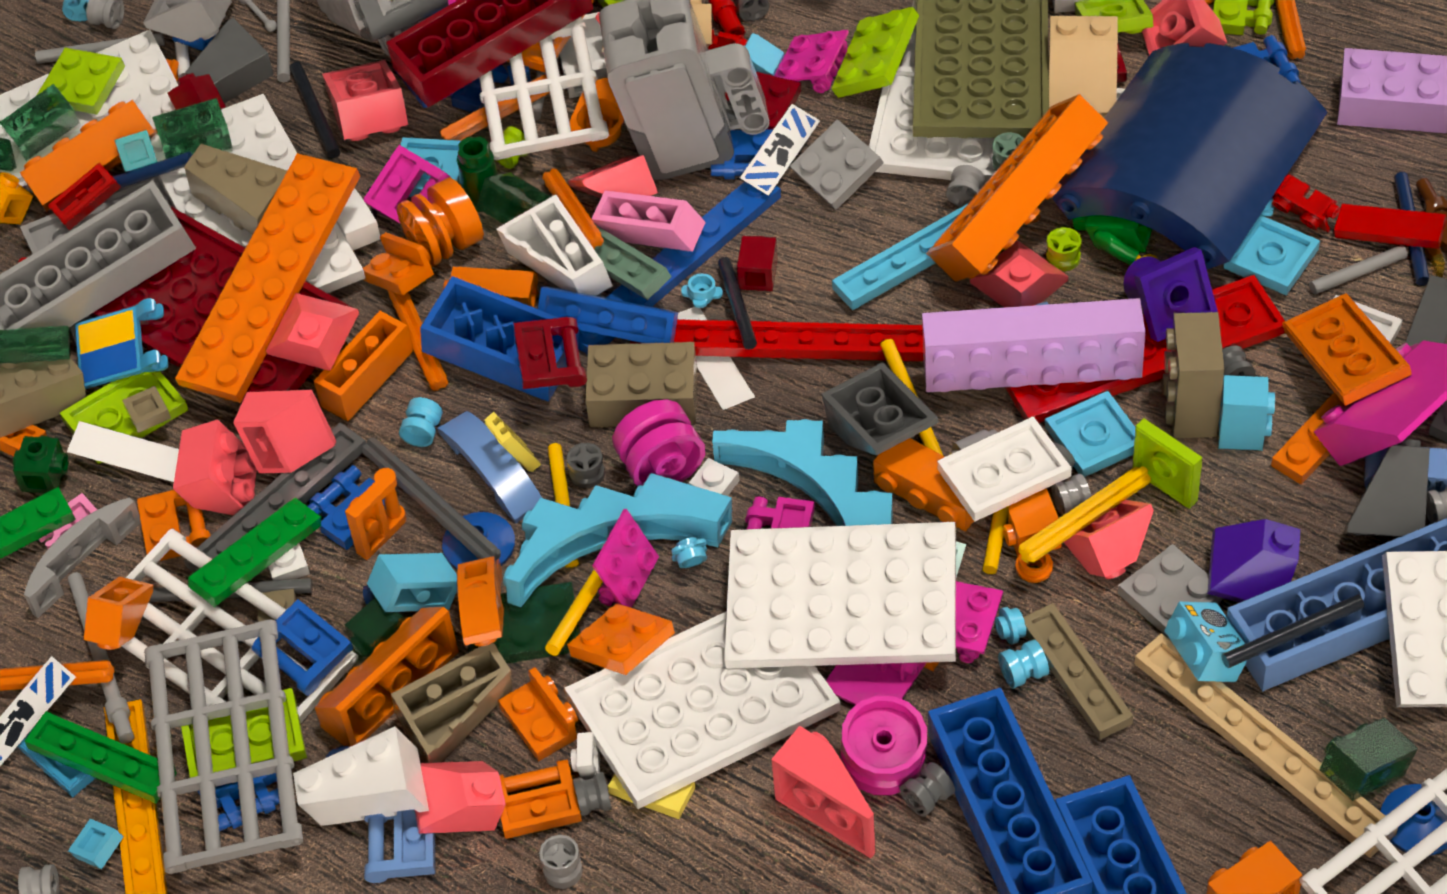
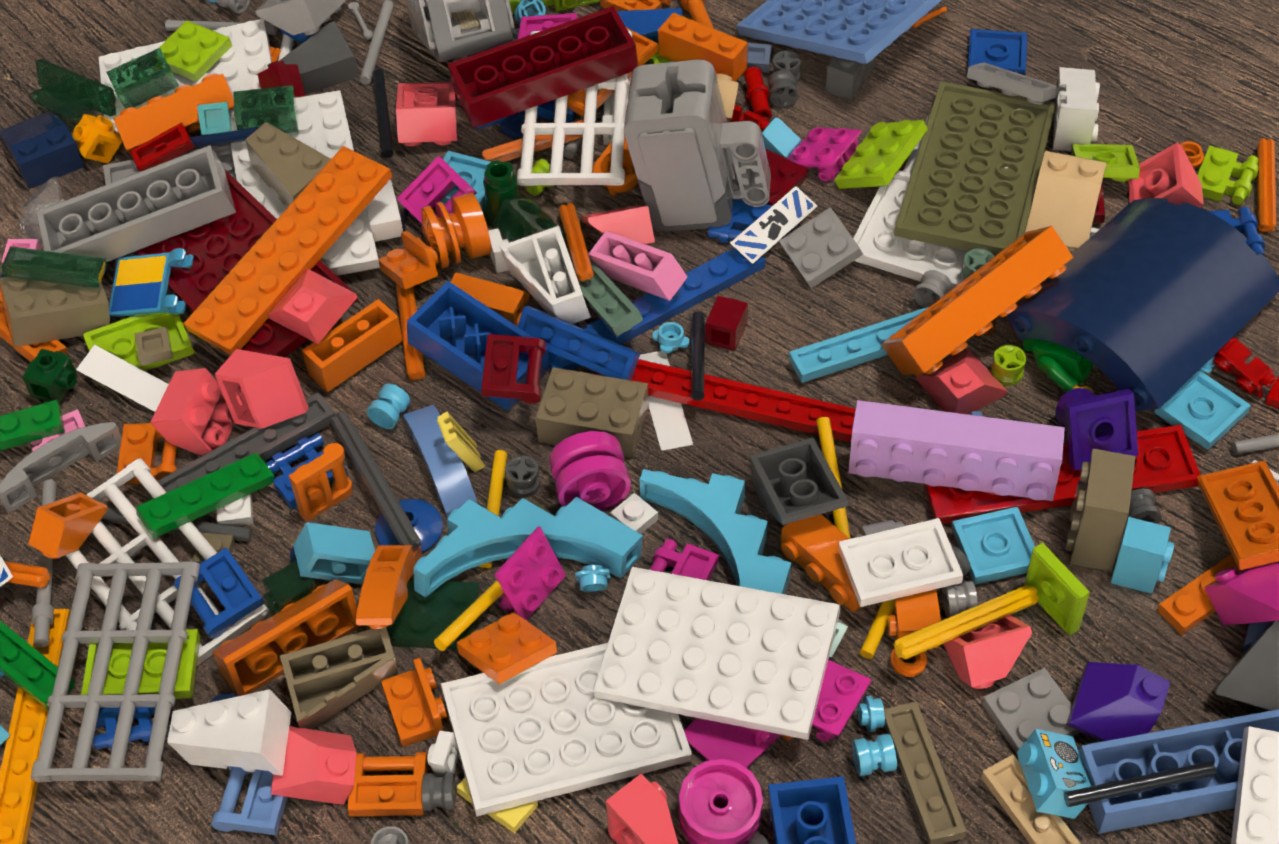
camera: 10 degrees right, 0 degrees up
(491, 238) = (496, 254): none -> white plate

